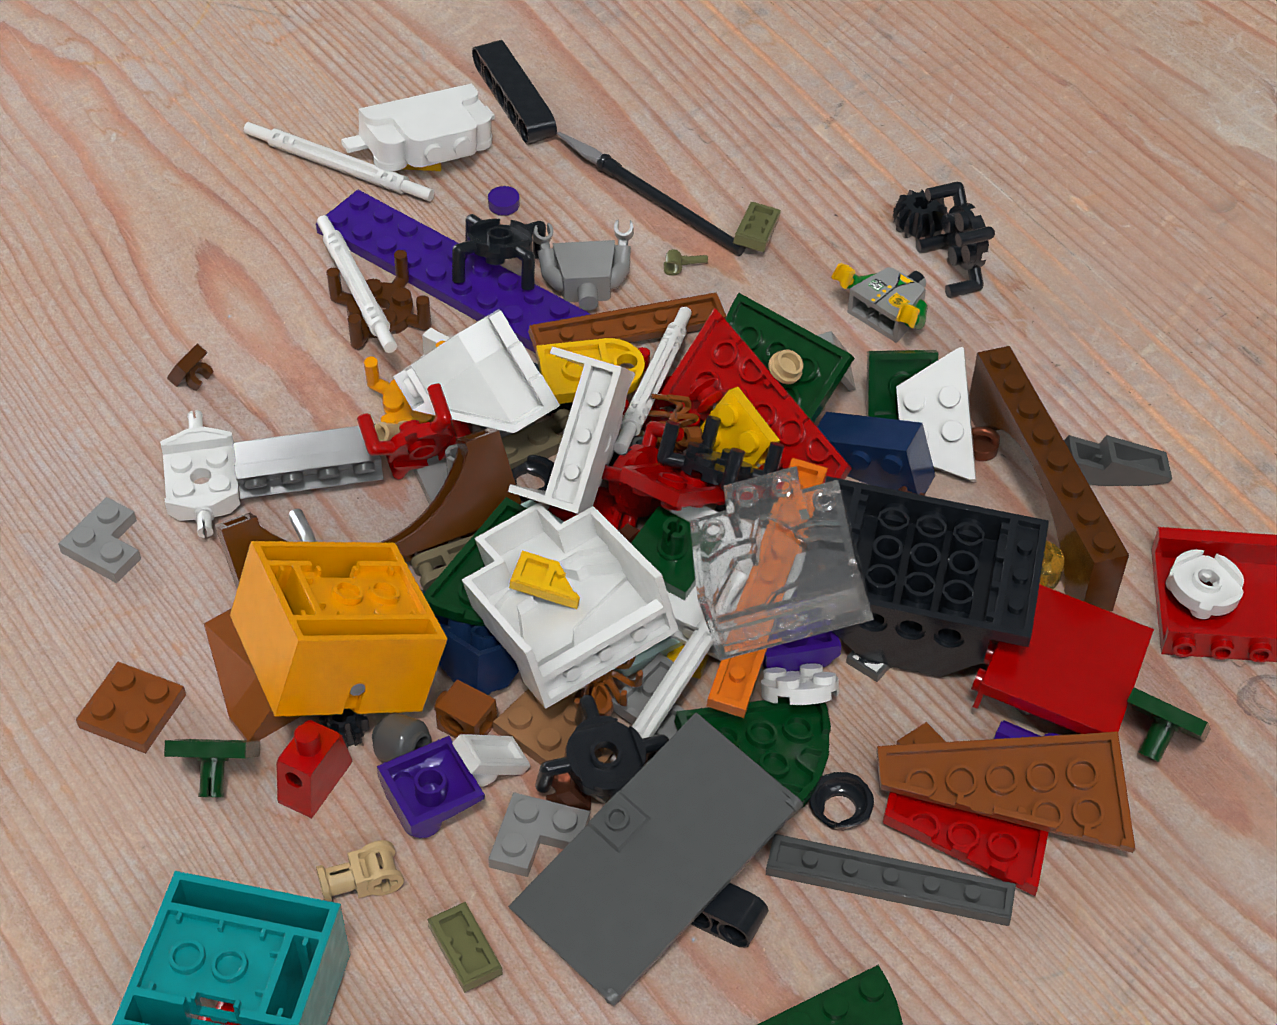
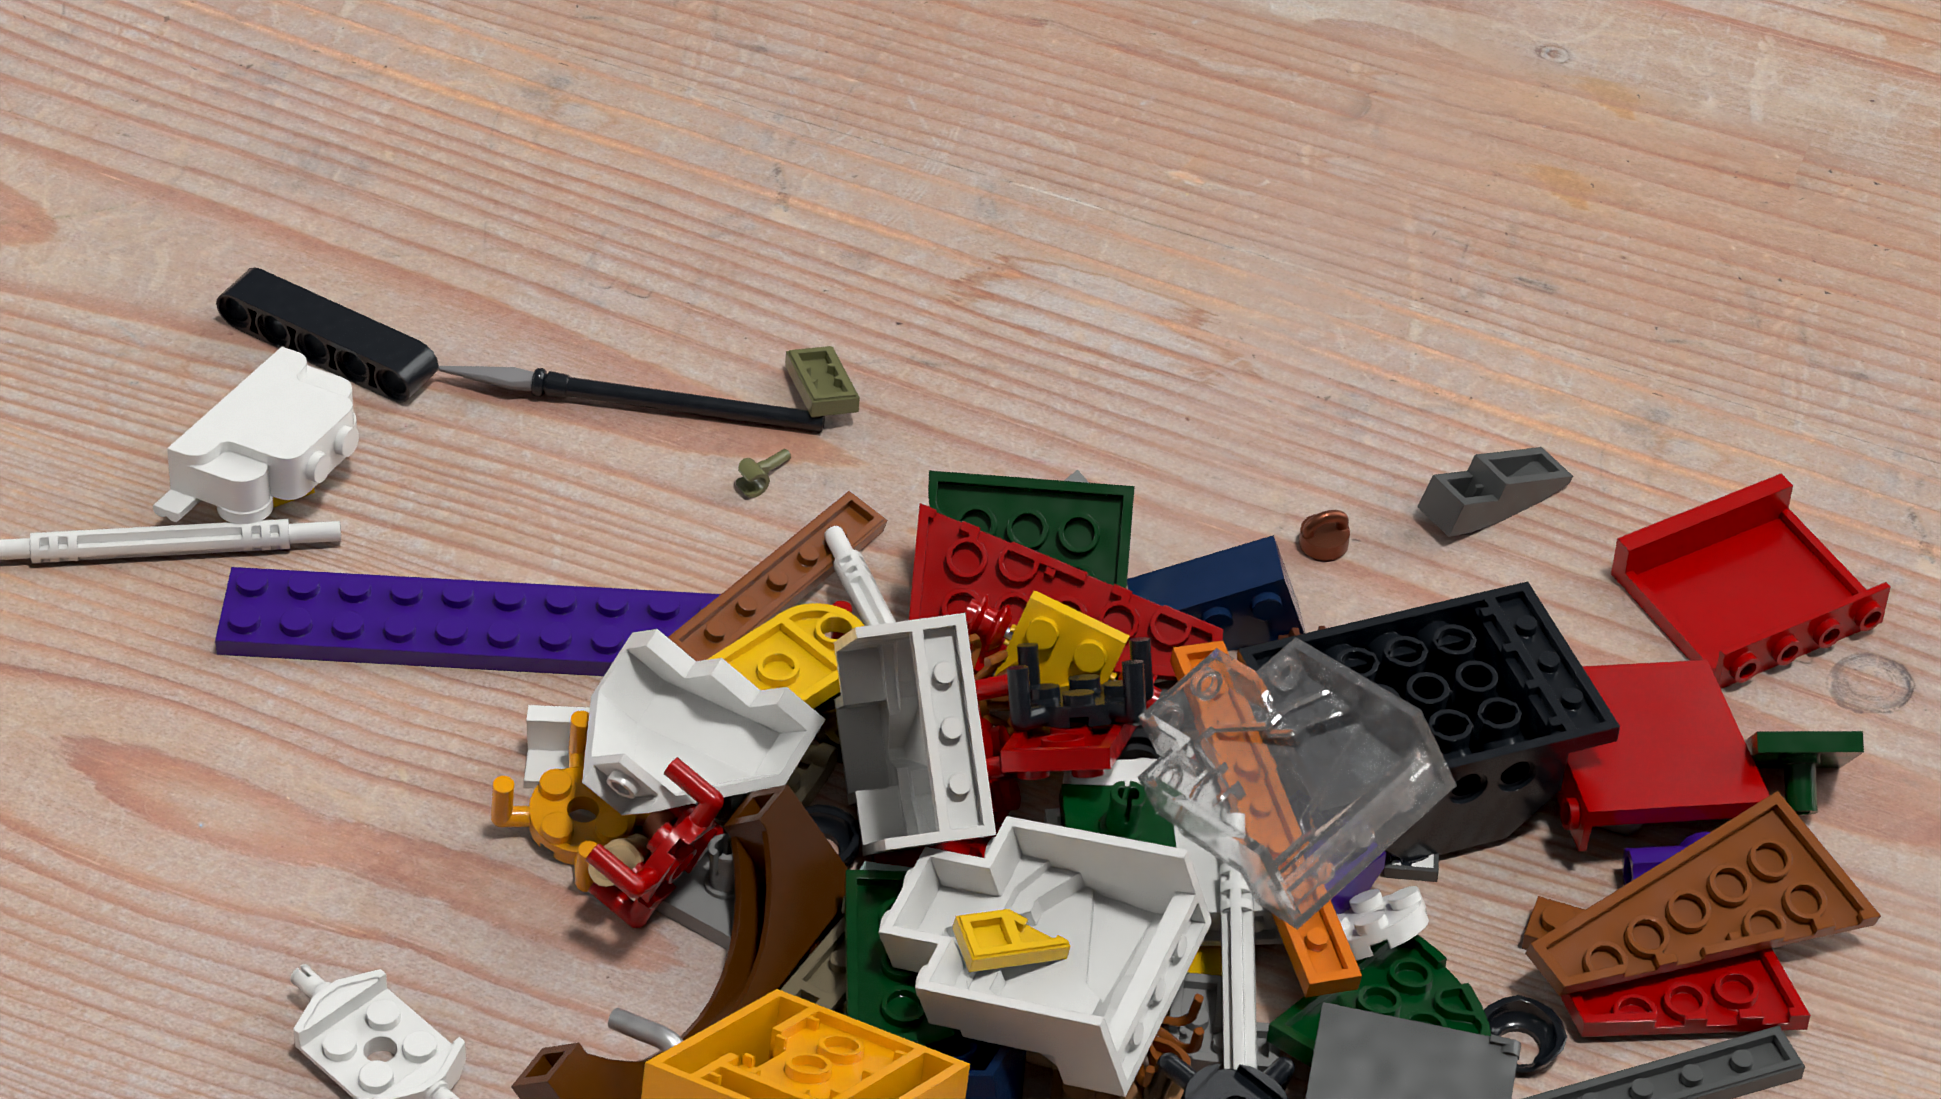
camera: 35 degrees left, 5 degrees down
(189, 366) = (228, 915): reddish brown tile -> none
(304, 462) = (518, 957): brick -> none
(356, 283) = (367, 692): white axle -> none
(388, 295) = (406, 694): reddish brown plate -> none
(497, 243) = (523, 549): black plate -> none
(503, 200) = (446, 494): dark purple tile -> none
(585, 269) = (650, 537): light grey torso -> none
(786, 366) = (1062, 538): tan plate -> none
(885, 299) = (1071, 406): light grey torso -> none
(886, 372) = (1188, 504): dark green tile -> none
(918, 216) = (1015, 275): black gear -> none
(941, 402) = (1256, 499): white wing -> none
(963, 233) = (1090, 278): black plate -> none
(1092, 550) = (1335, 459): reddish brown arch -> none
(1200, 598) = (1689, 585): white plate -> none

